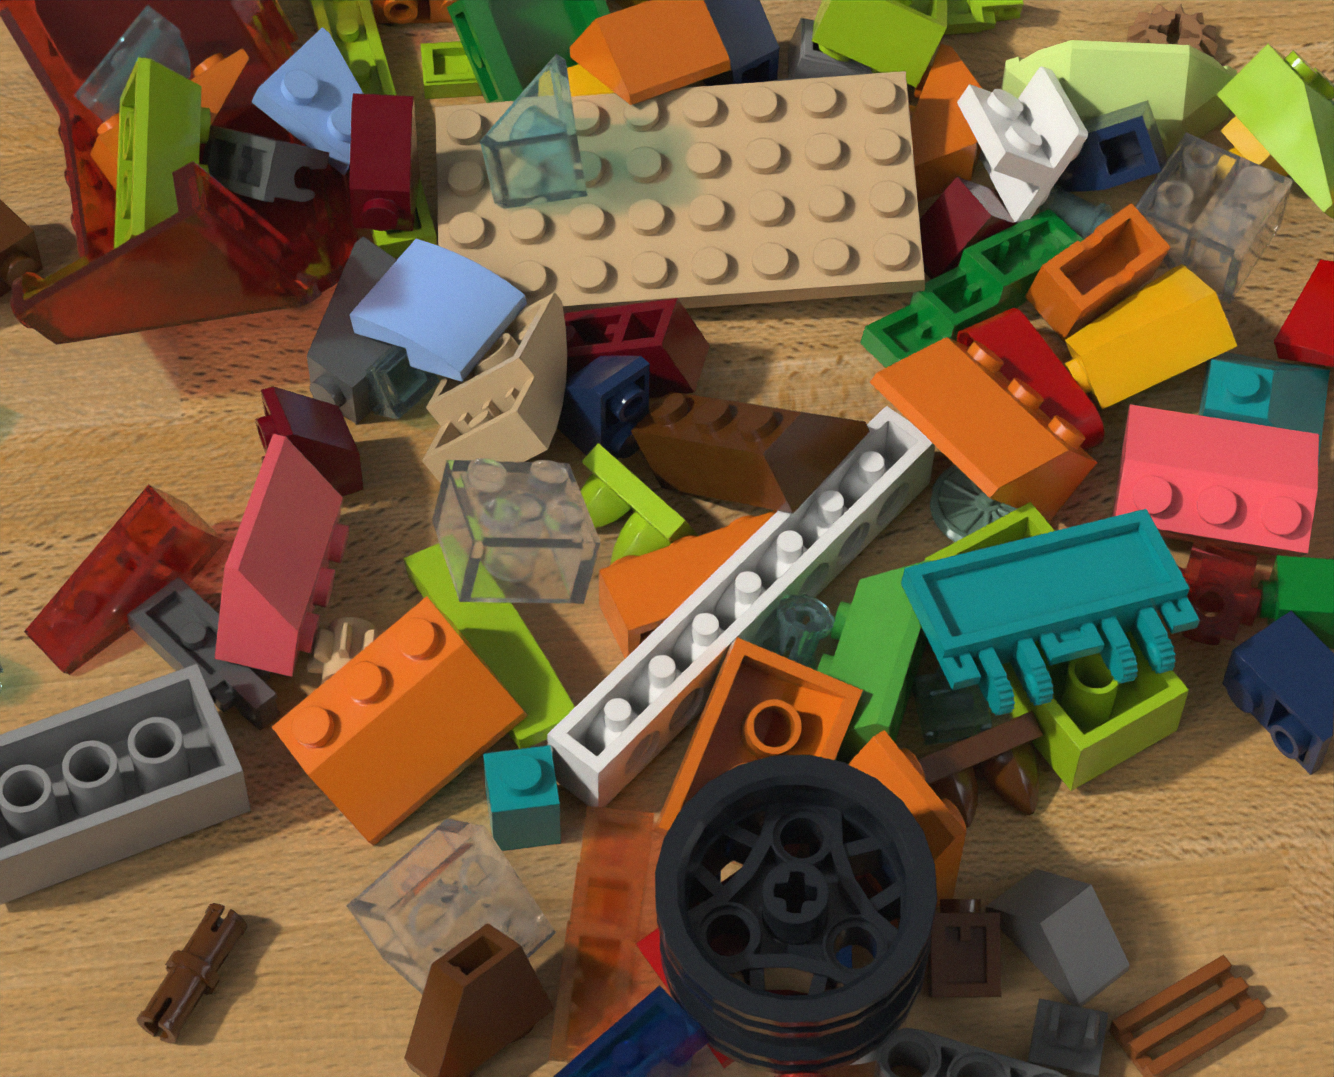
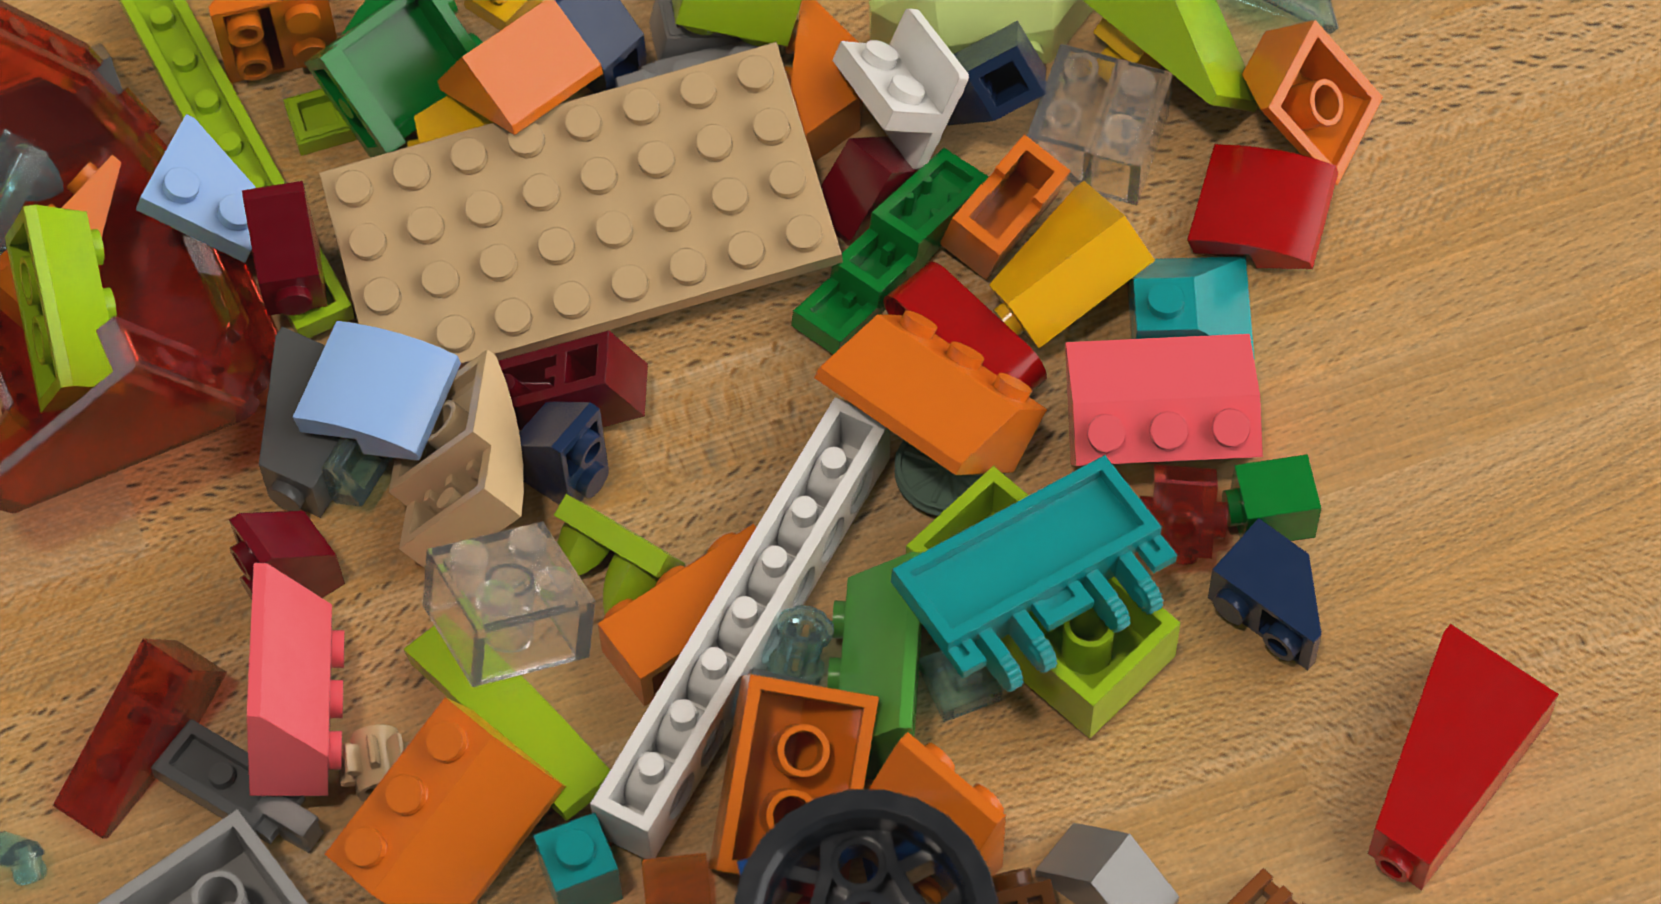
camera: 10 degrees left, 5 degrees up
(259, 164) = (160, 273): dark grey hinge -> none
(535, 144) = (436, 201): clear light blue slope -> none
(743, 449) = (708, 467): reddish brown slope -> none
(1004, 760) = (1021, 723): reddish brown tile -> none
(1076, 212) = (975, 146): clear light blue pin -> none

